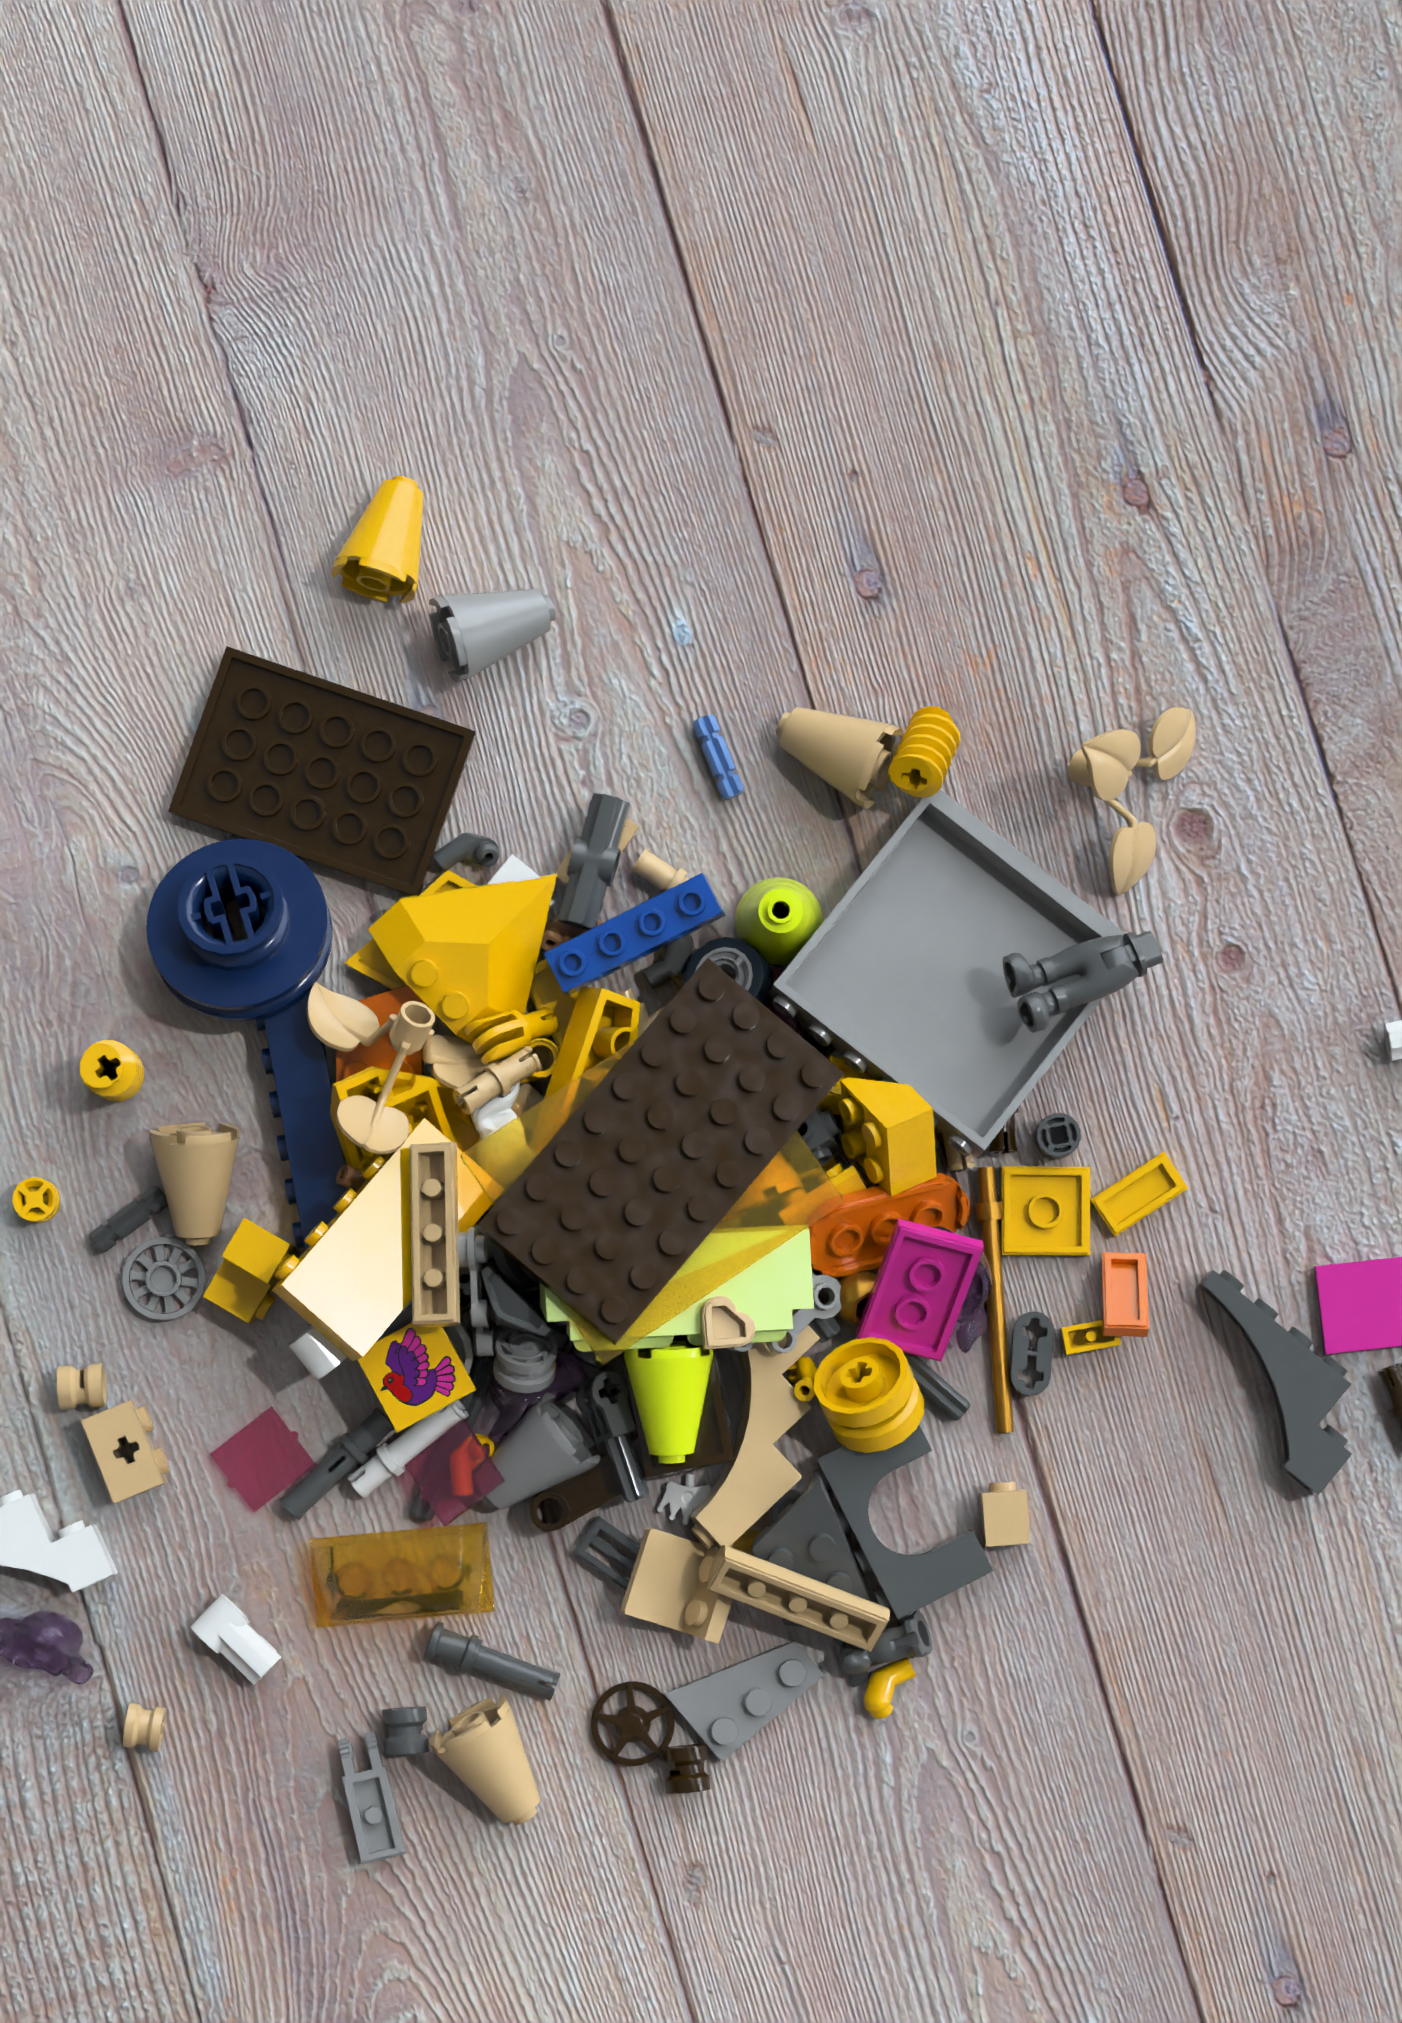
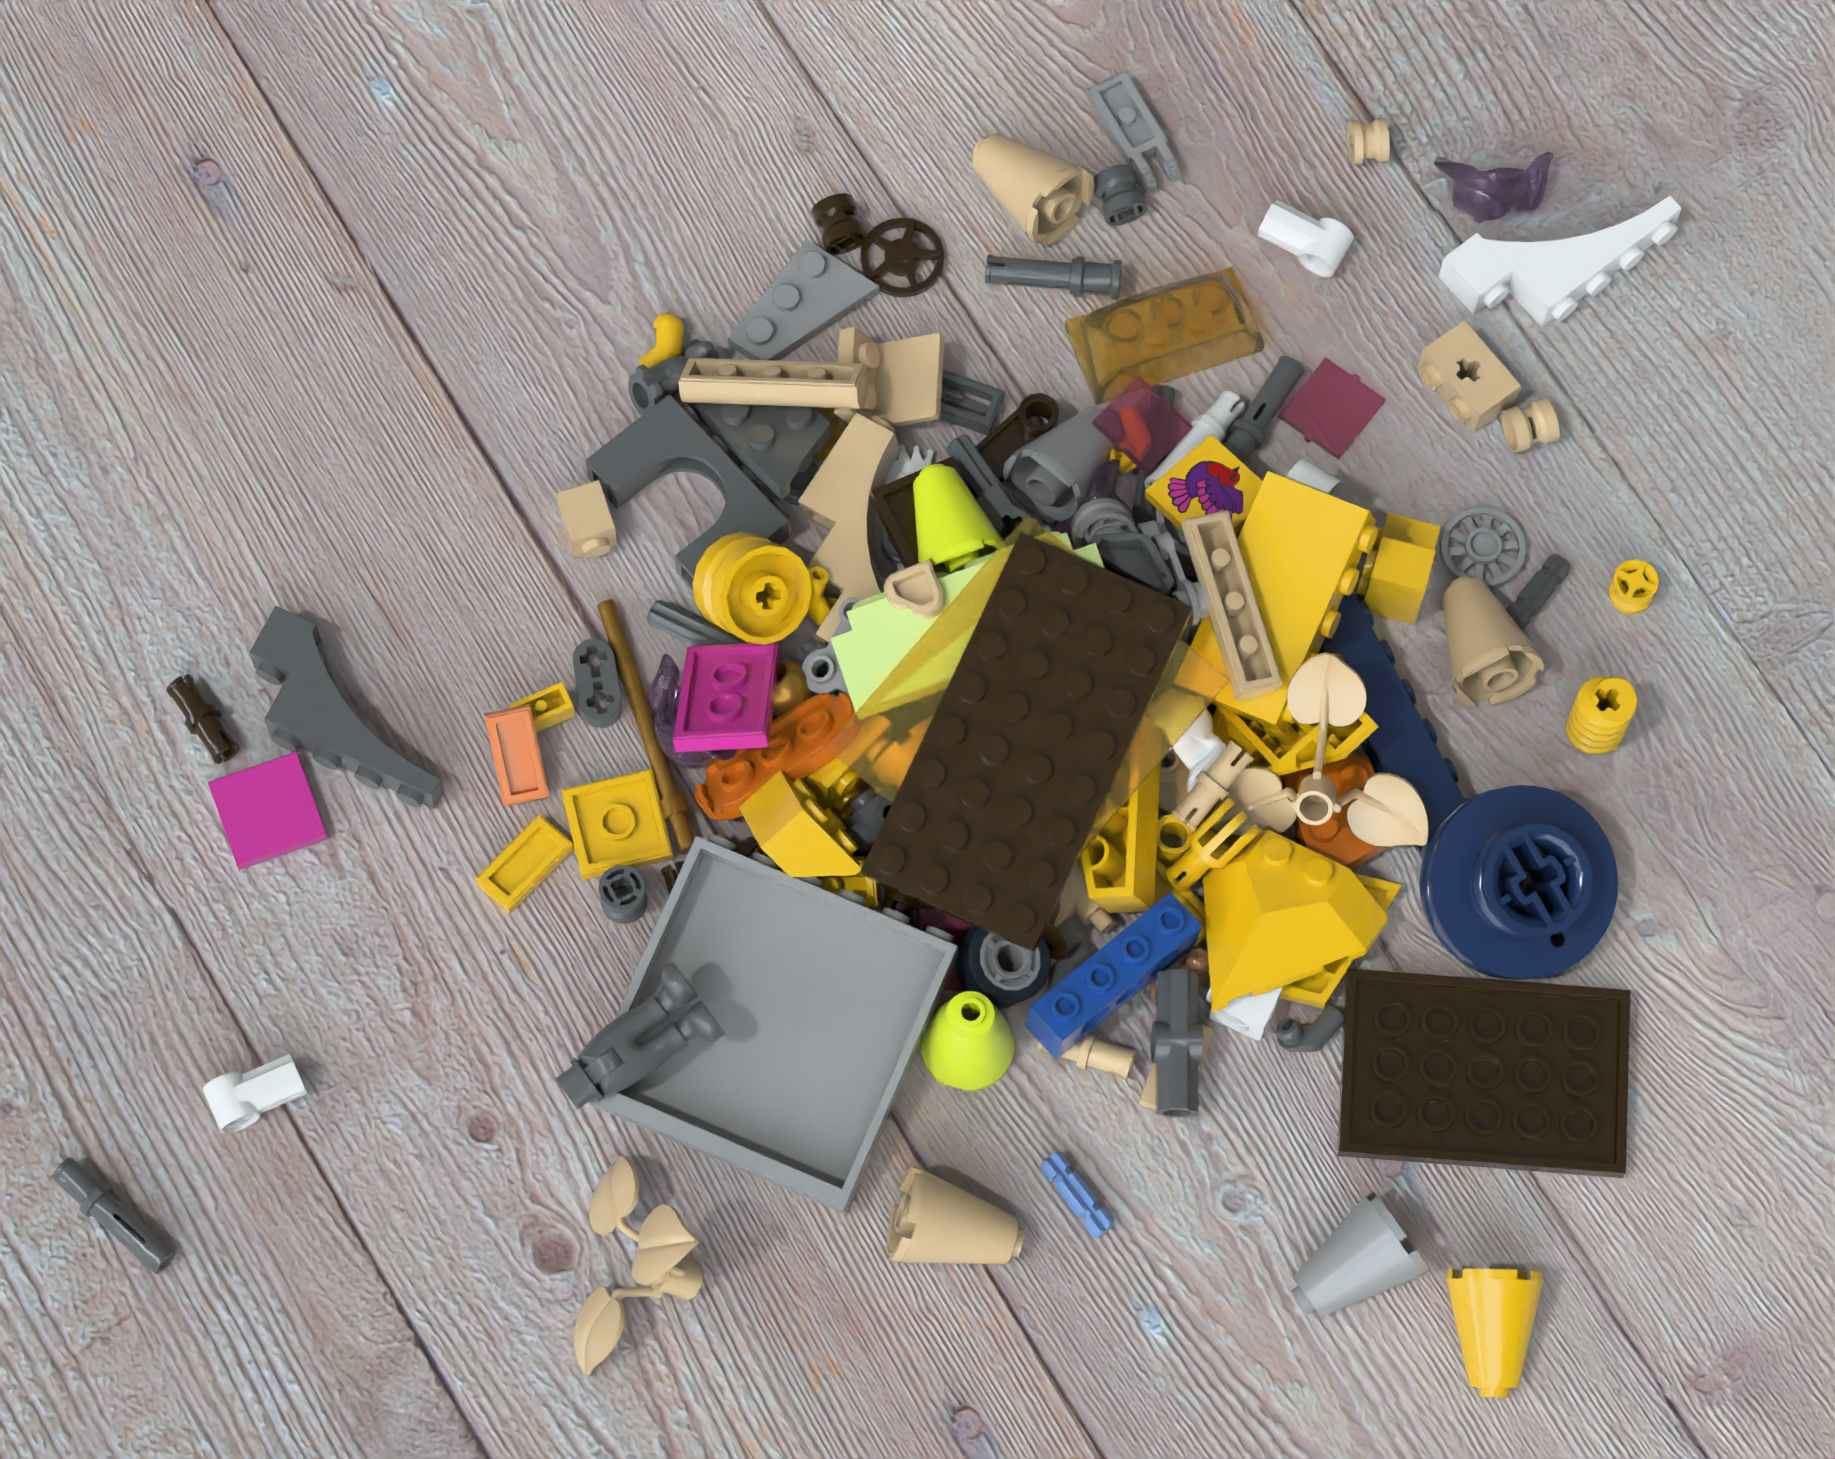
camera: 165 degrees right, 15 degrees down
(925, 752) = (860, 1239): yellow piece -> none

